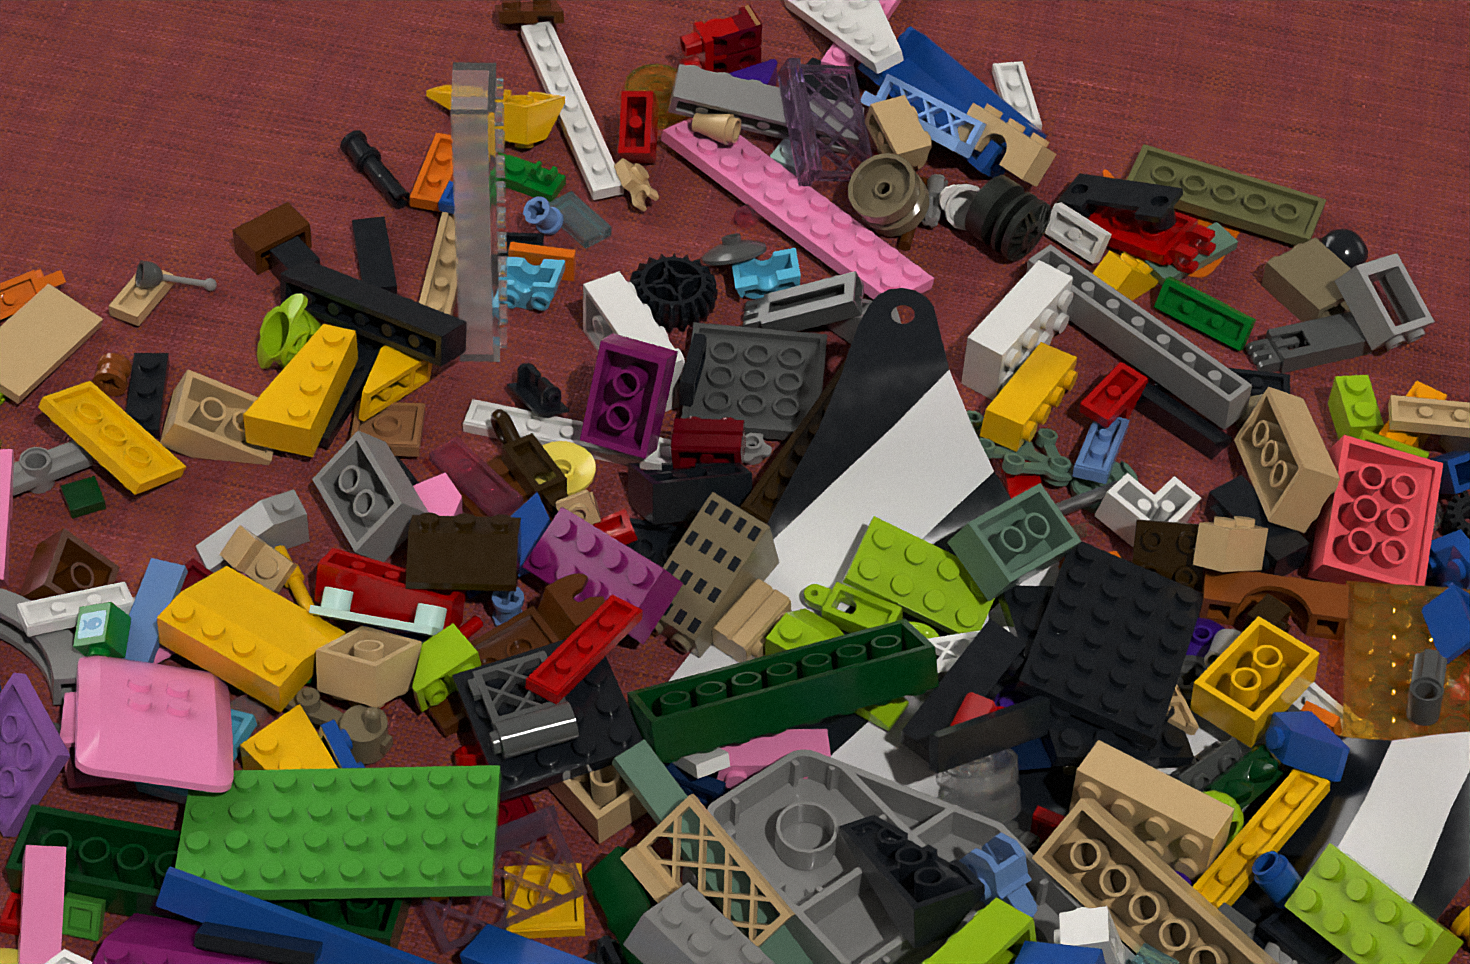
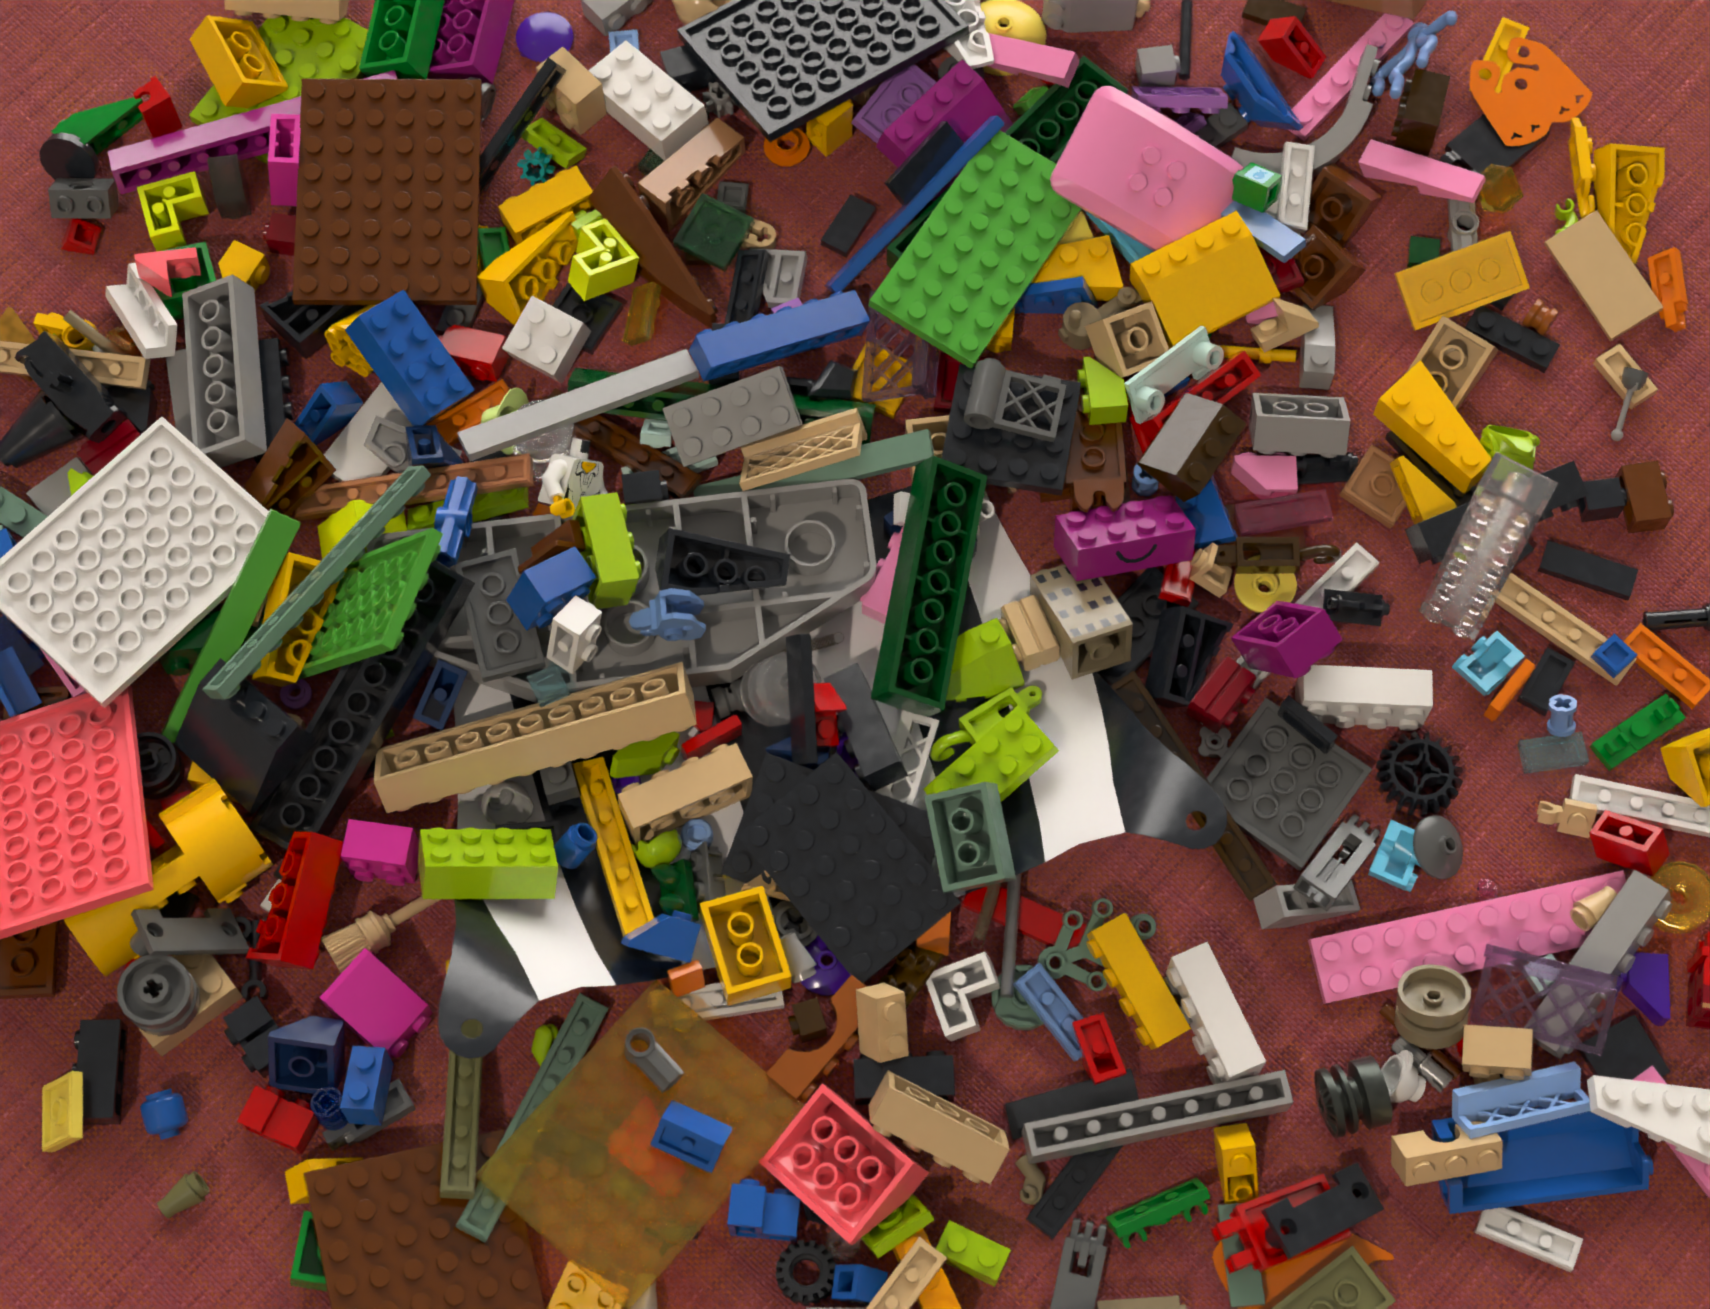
camera: 125 degrees right, 20 degrees up
(163, 541) = (1325, 268): none -> reddish brown slope
(584, 649) = (1038, 462): red tile -> none
(586, 924) = (834, 382): none -> black piece
(1077, 233) = (1322, 1159): white plate -> none

